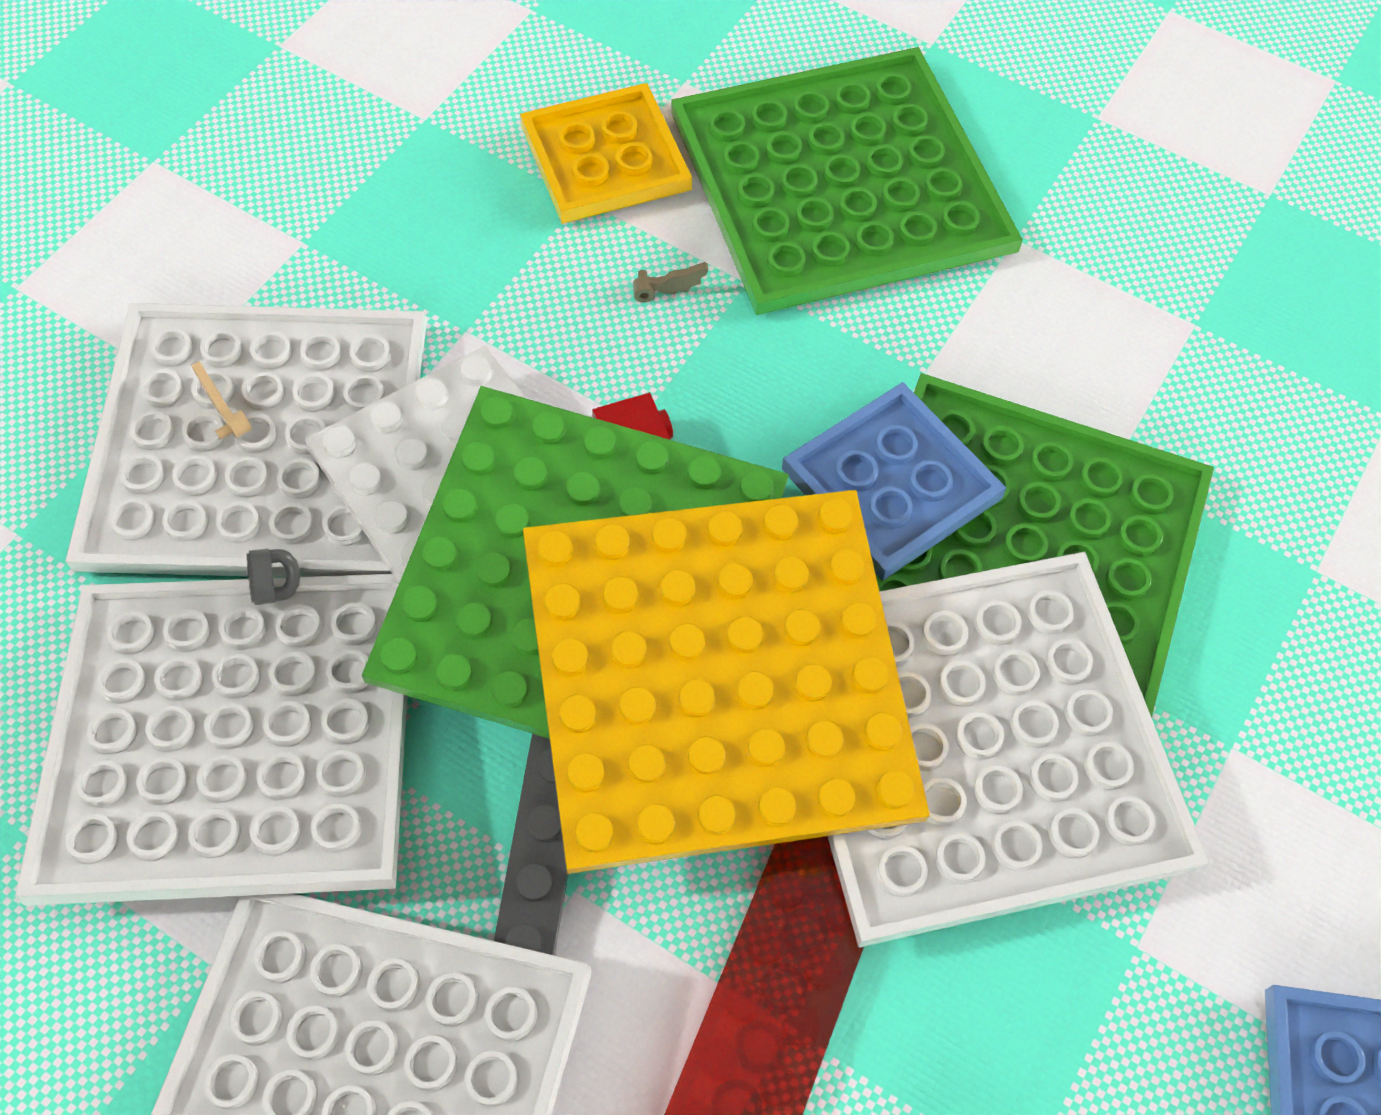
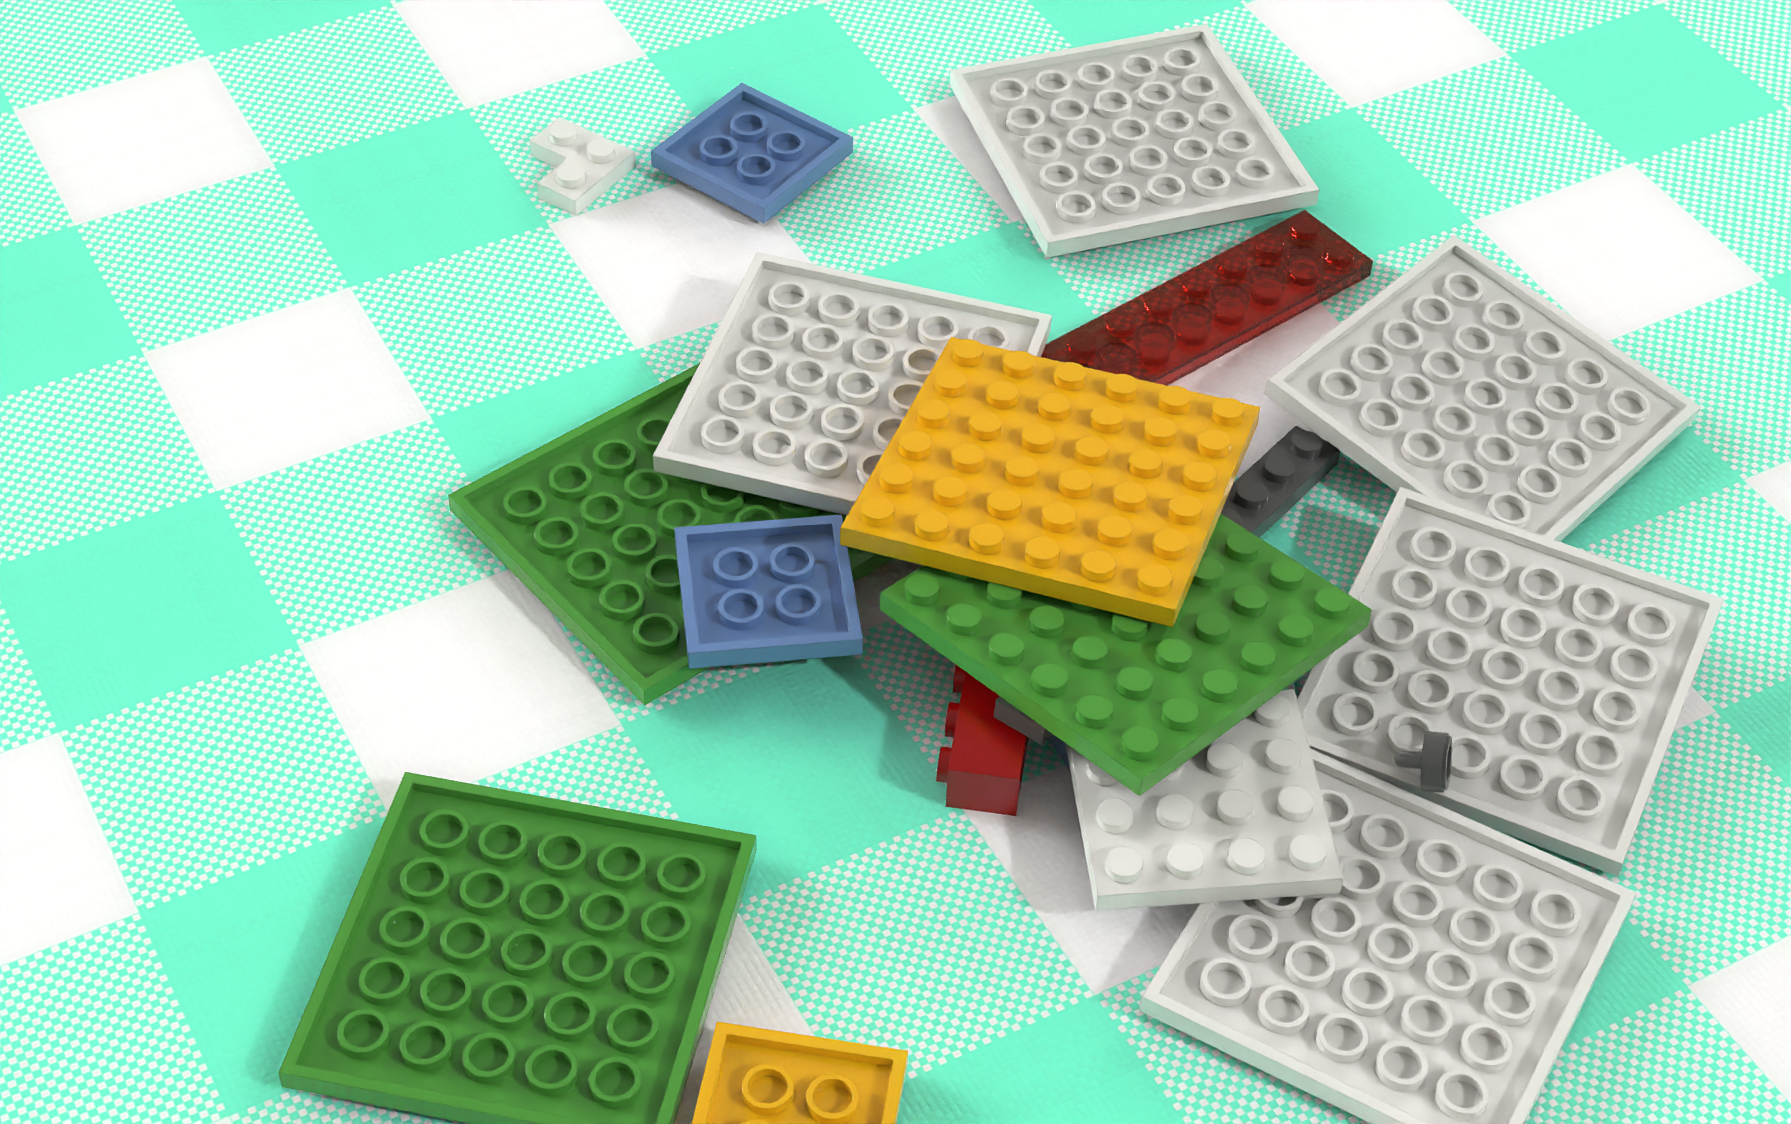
camera: 150 degrees left, 15 degrees down
(235, 423) = (1415, 942): tan piece -> none
(672, 283) = (821, 920): dark tan piece -> none

